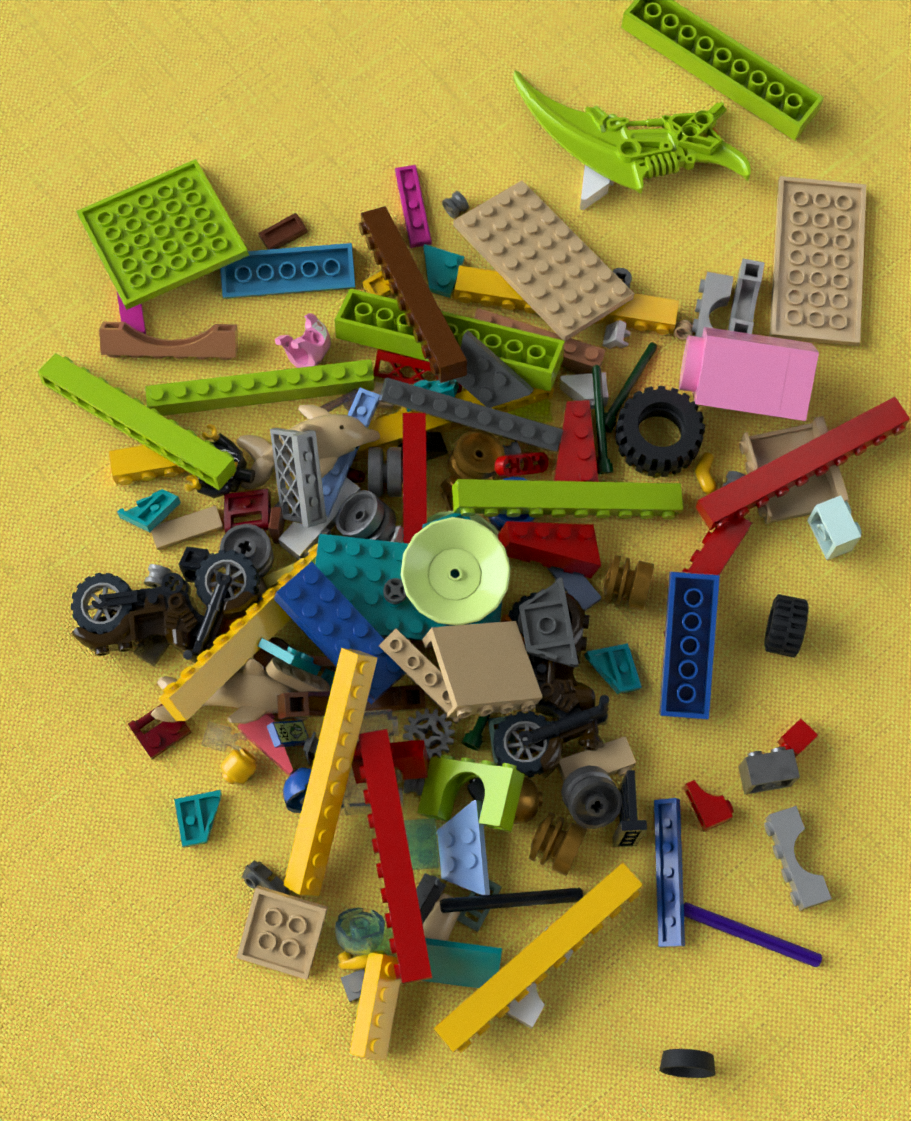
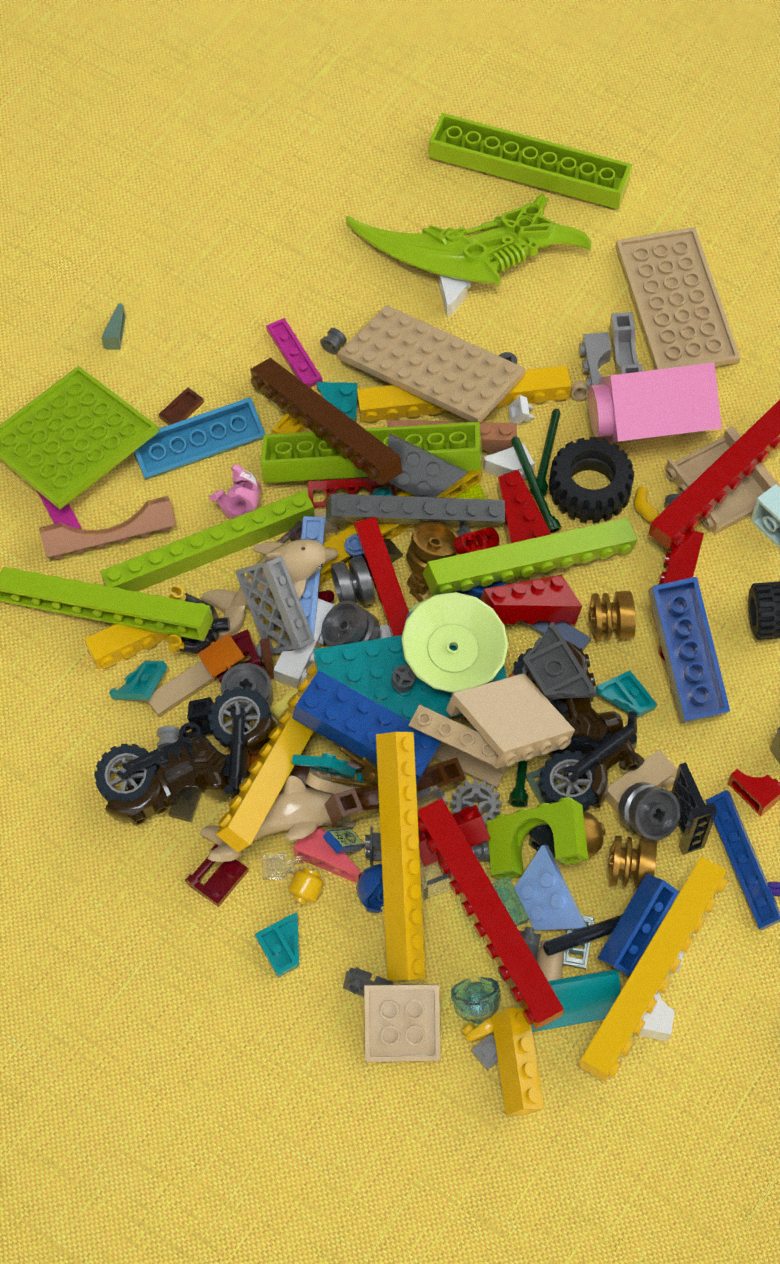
camera: 15 degrees left, 10 degrees down
(232, 508) = (220, 655): none -> orange piece
(242, 132) = (114, 330): none -> sand green slope
(329, 675) = (369, 772): none -> pearl gold plant
(396, 433) = (352, 546): none -> medium blue plate
(537, 910) = (638, 924): none -> blue brick

